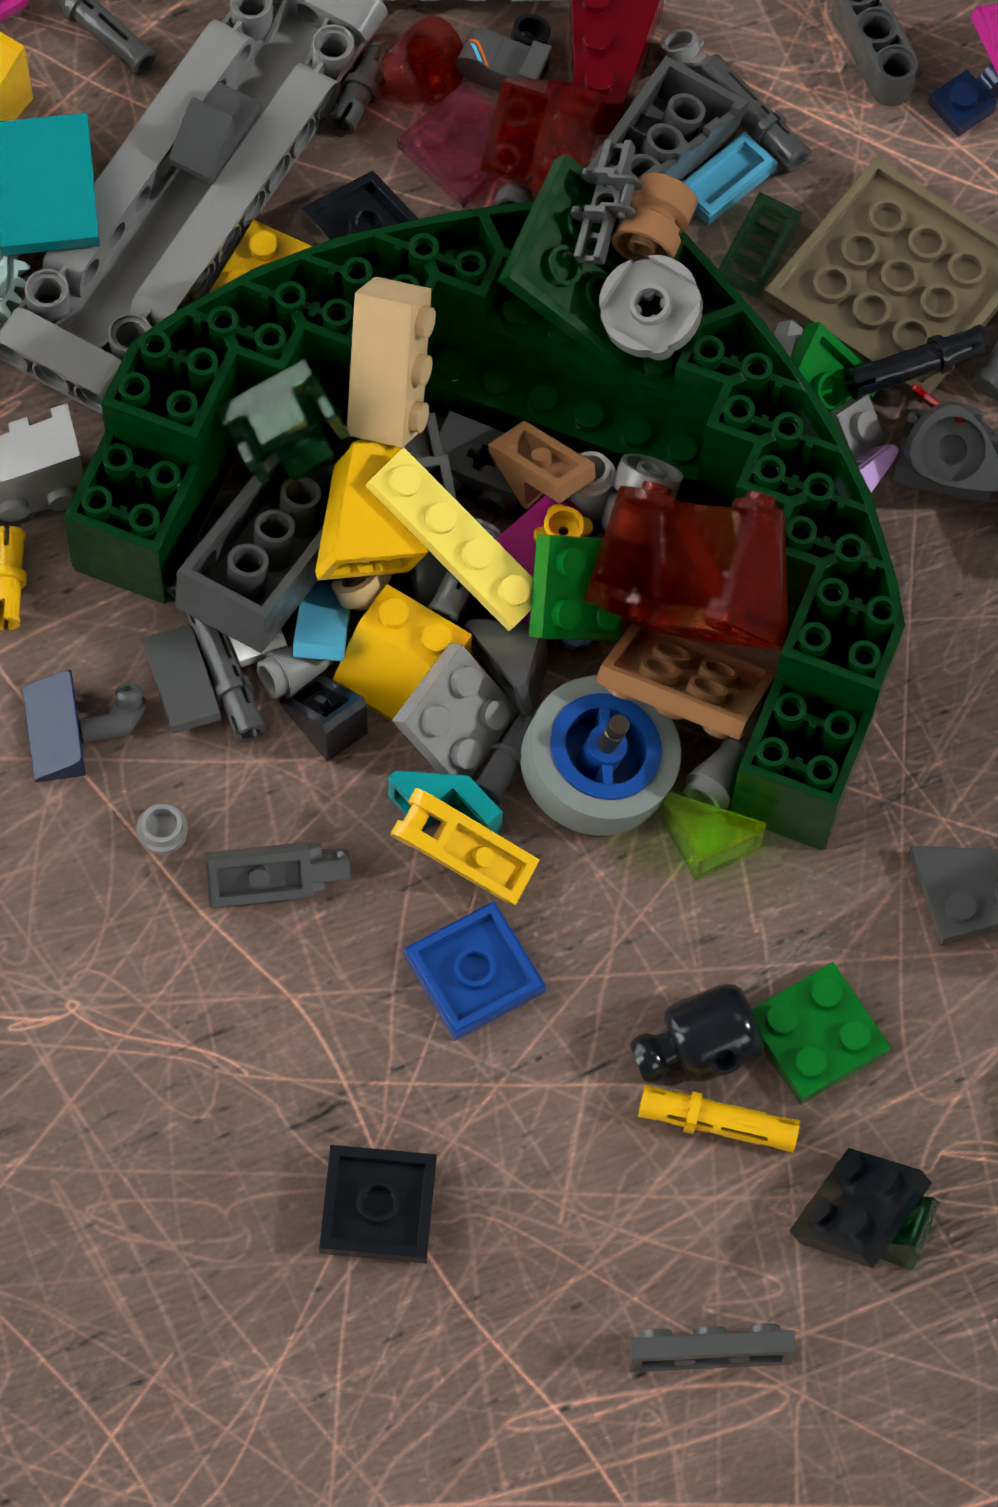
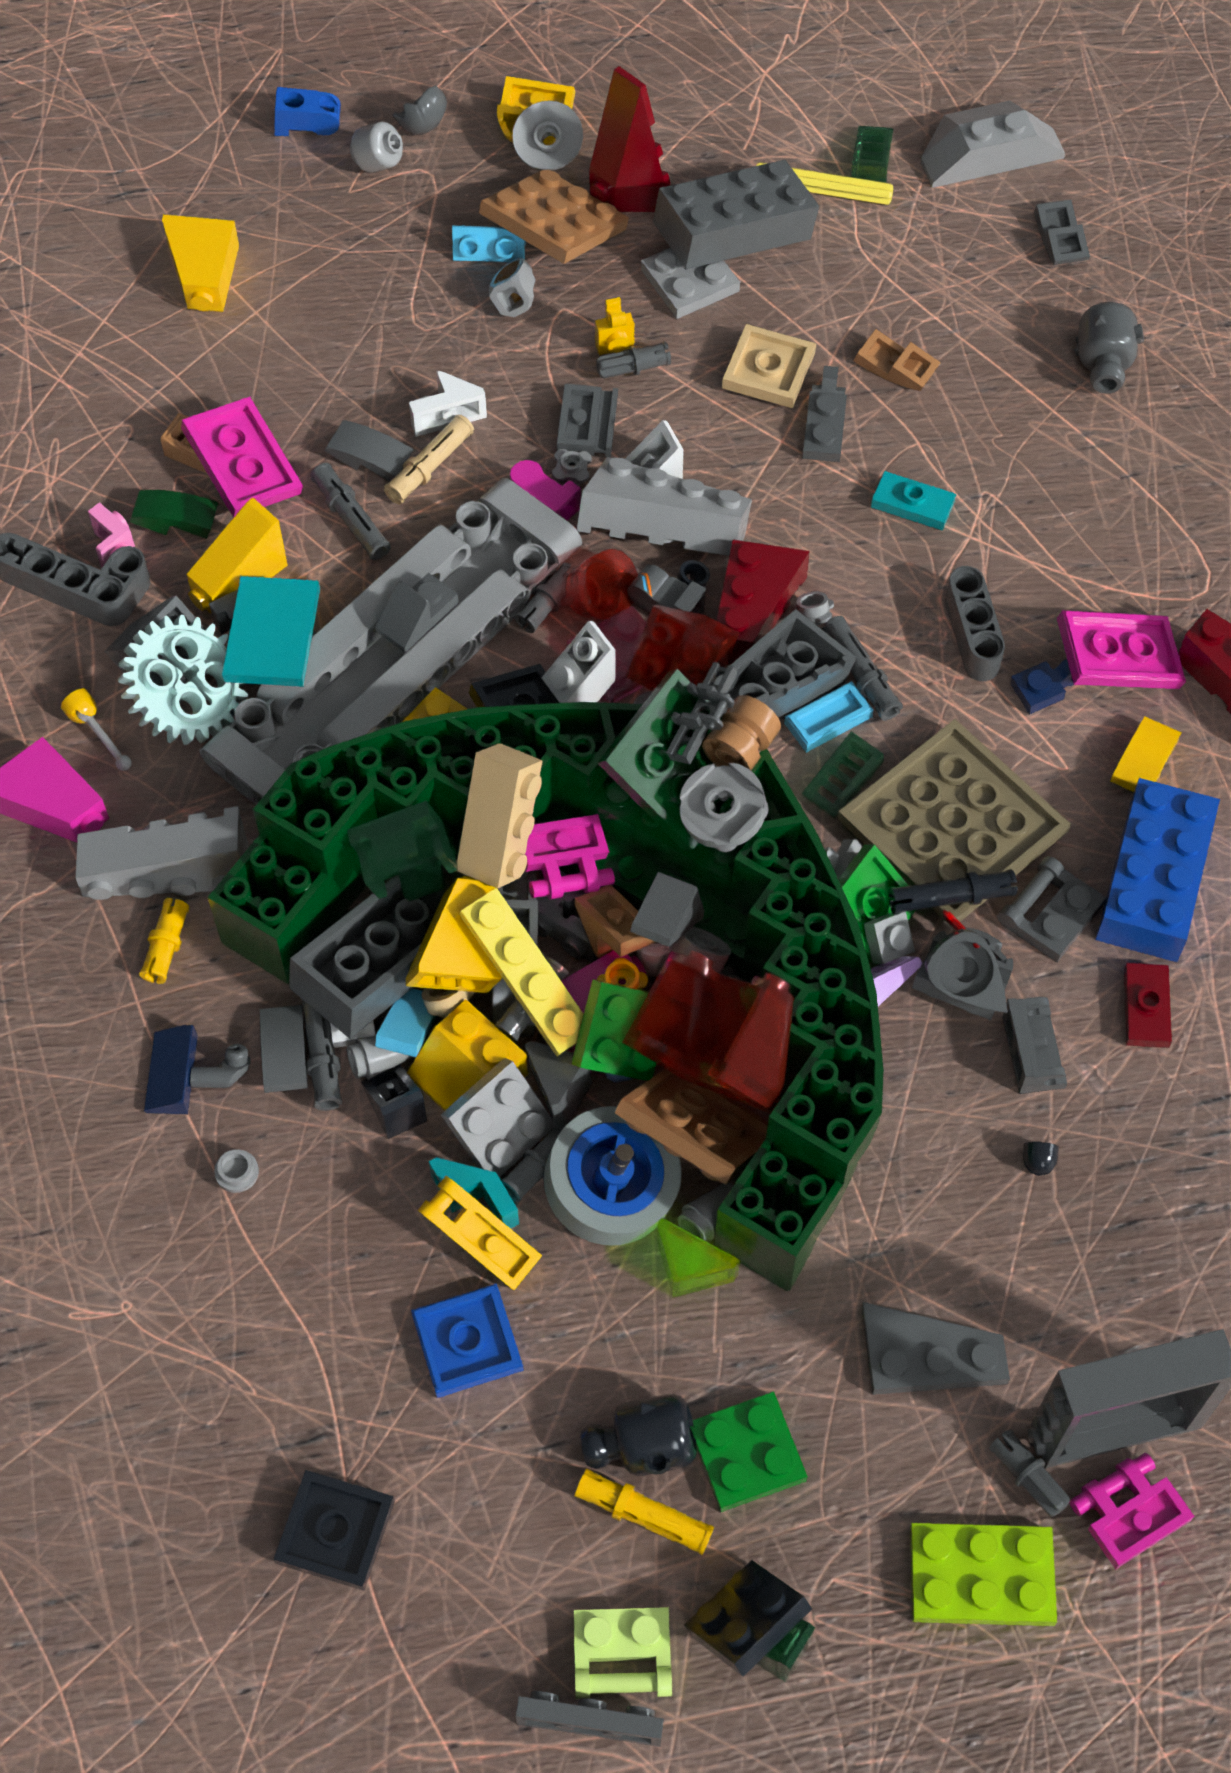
camera: 15 degrees right, 5 degrees down
(273, 873) = (317, 1225): dark grey hinge -> none
(430, 168) = (583, 668): none -> white slope
(468, 380) = (563, 844): none -> dark pink plate
(605, 439) = (668, 910): none -> dark grey slope
(724, 1257) = (622, 1636): none -> yellowish green plate

